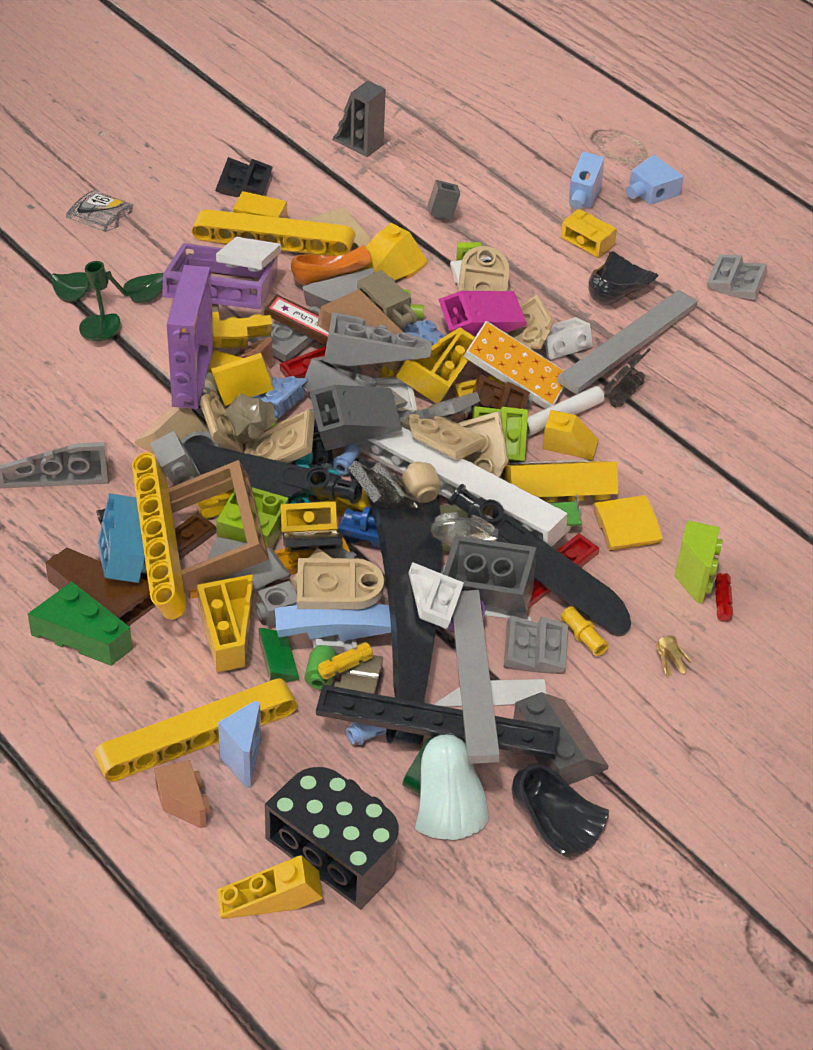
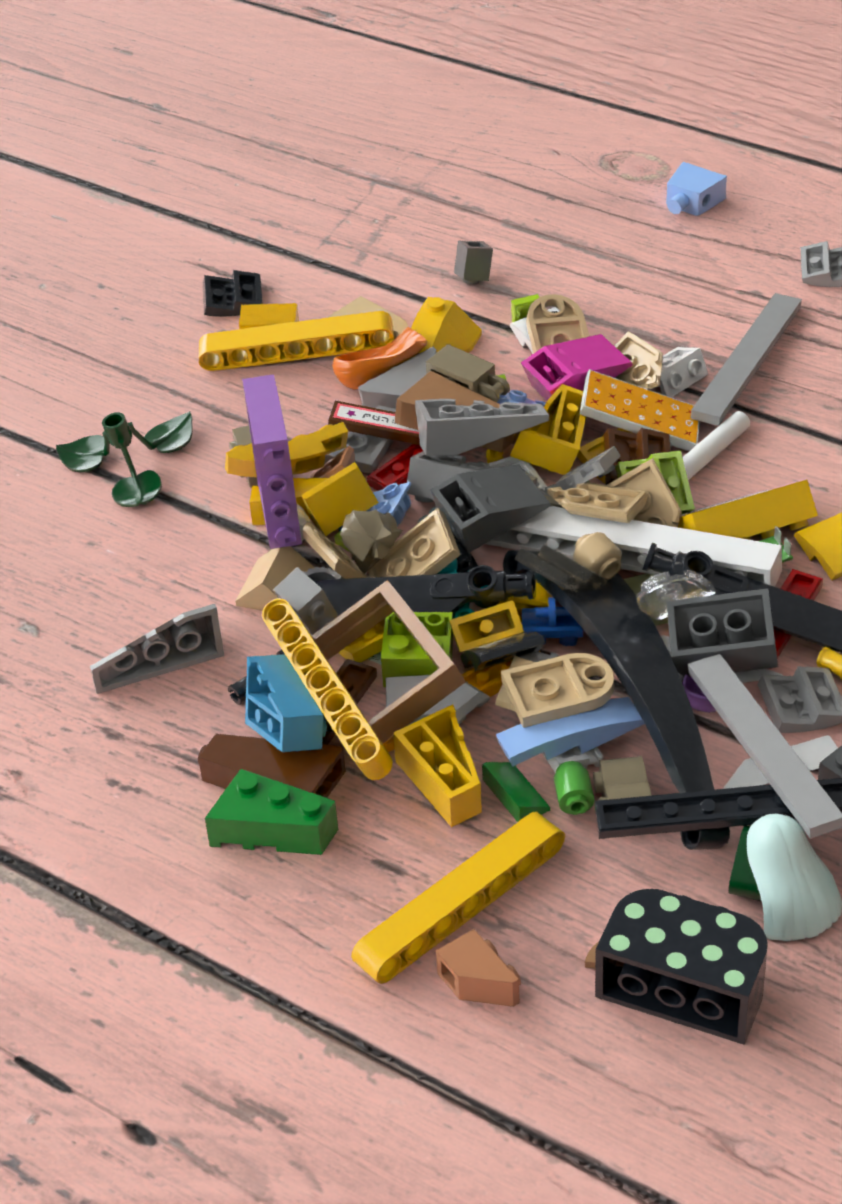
camera: 10 degrees left, 5 degrees down
(99, 211) = (80, 366): clear slope -> none
(223, 290) = (229, 399): medium lavender window -> none
(240, 741) = (524, 894): light blue slope -> none
(248, 253) = (286, 363): white tile -> none
(272, 890) = (634, 1051): yellow slope -> none
(274, 597) = (482, 731): light grey brick -> none
(343, 462) = (493, 554): light blue pin -> none
(345, 660) = (604, 770): yellow axle -> none
(358, 733) = (651, 847): light blue pin -> none
(363, 120) = (346, 199): dark grey wedge -> none
(434, 594) = (677, 669): white wing -> none
(569, 436) = (731, 470): yellow slope -> none
(584, 191) = (622, 215): light blue torso -> none
(588, 233) = (648, 258): yellow brick -> none
(617, 279) = (703, 299): black hair -> none
(627, 382) = (767, 398): clear smoke hinge -> none

